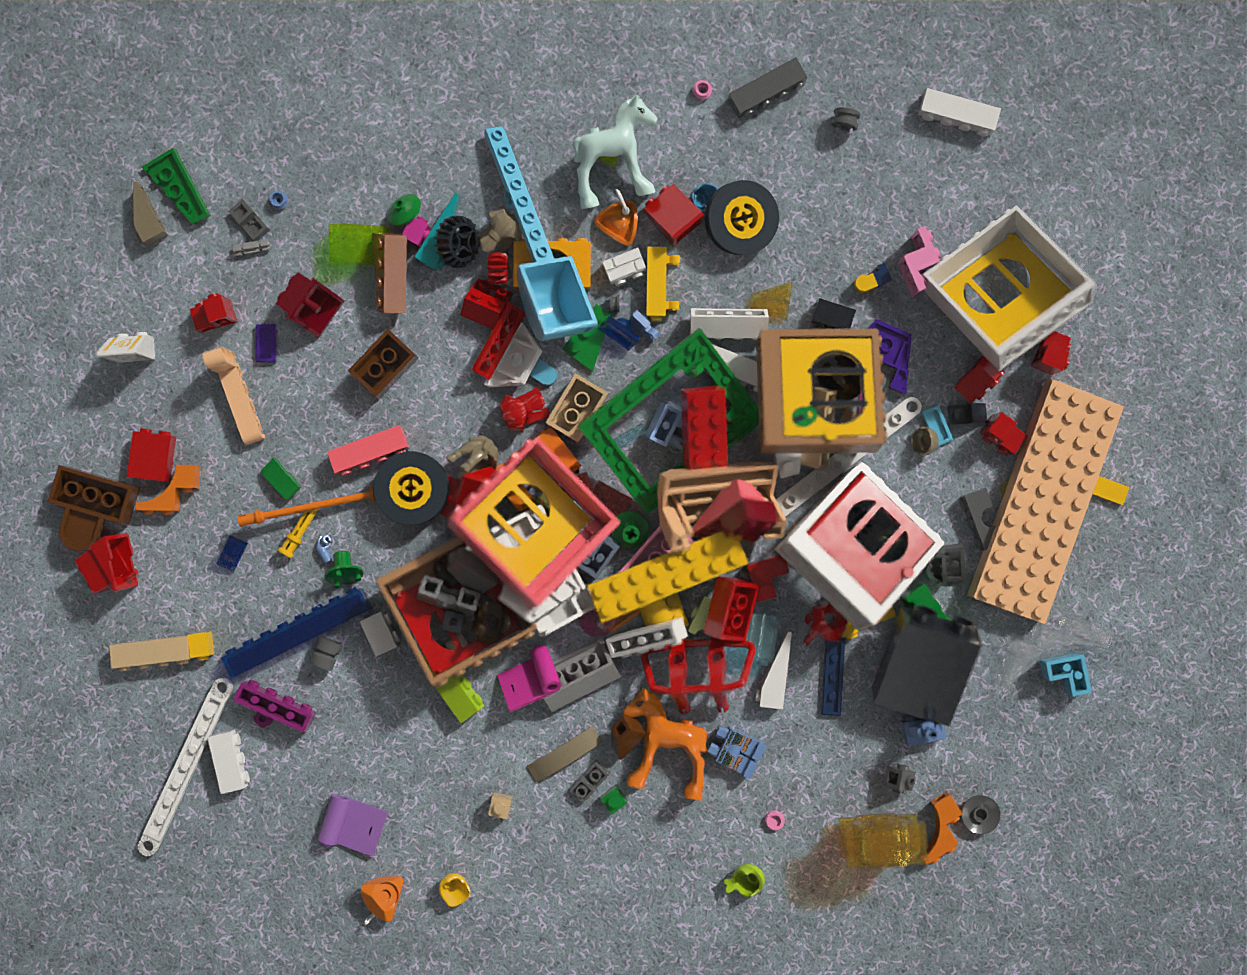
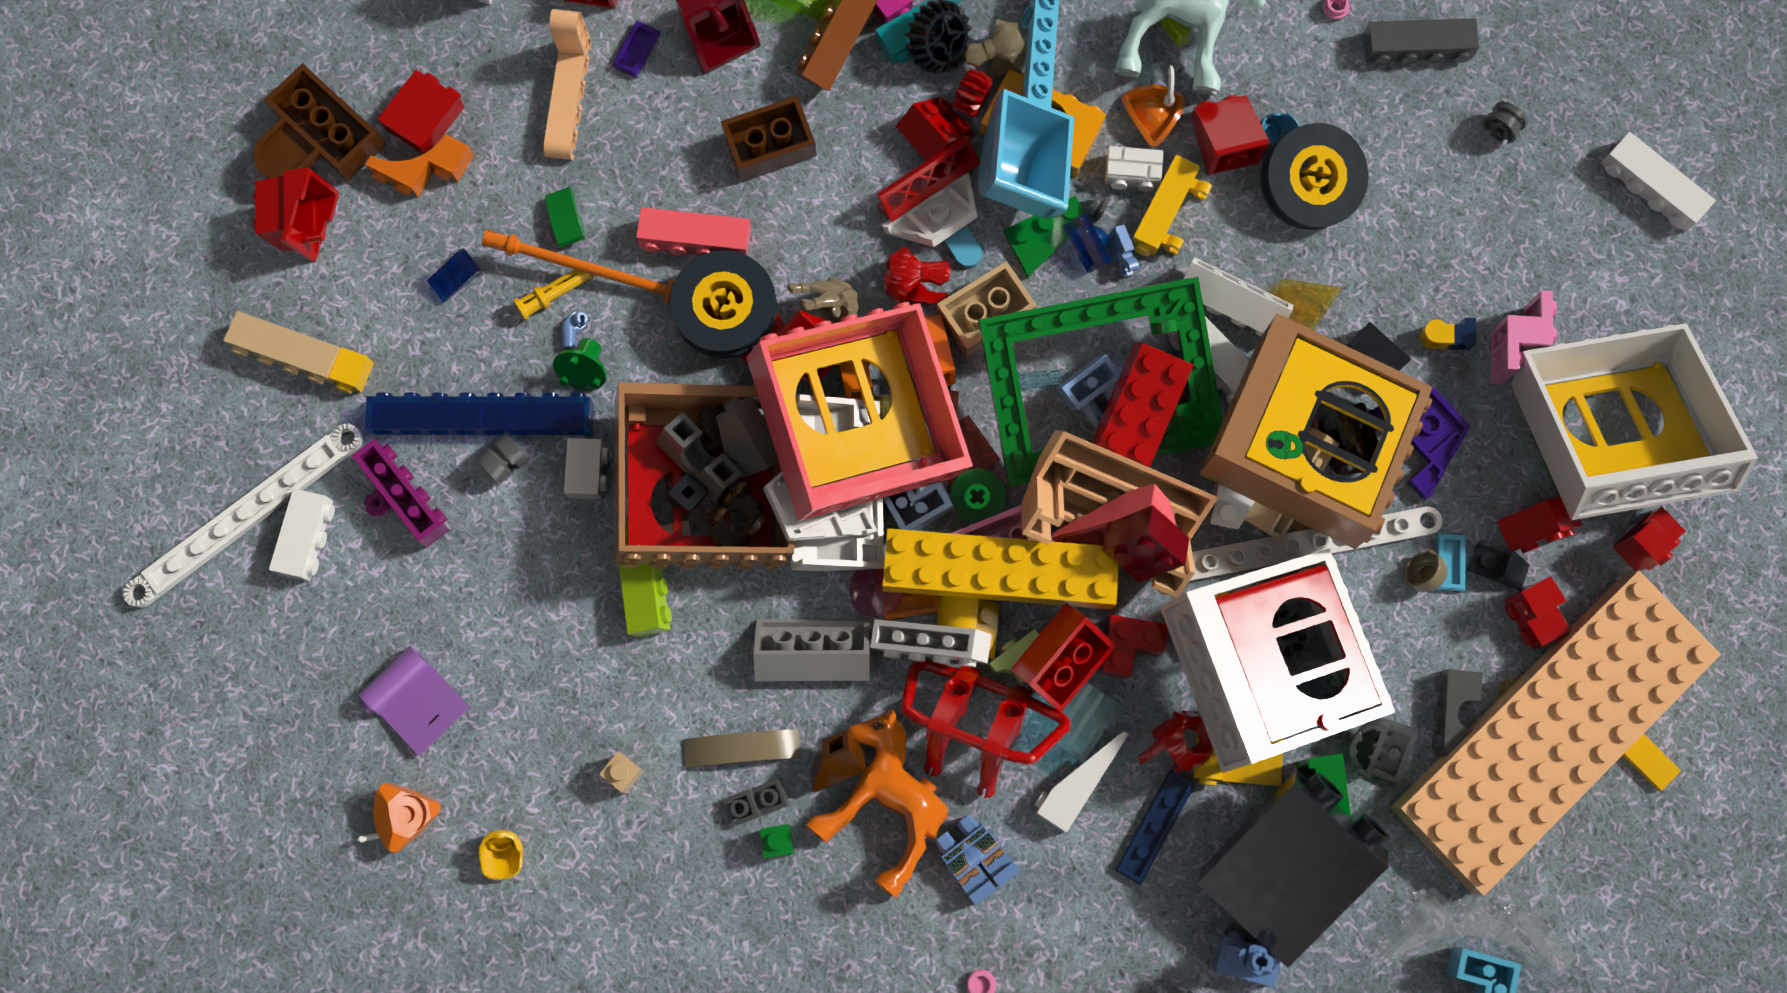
camera: 25 degrees right, 10 degrees down
(530, 679) = (748, 624): dark pink door -> none

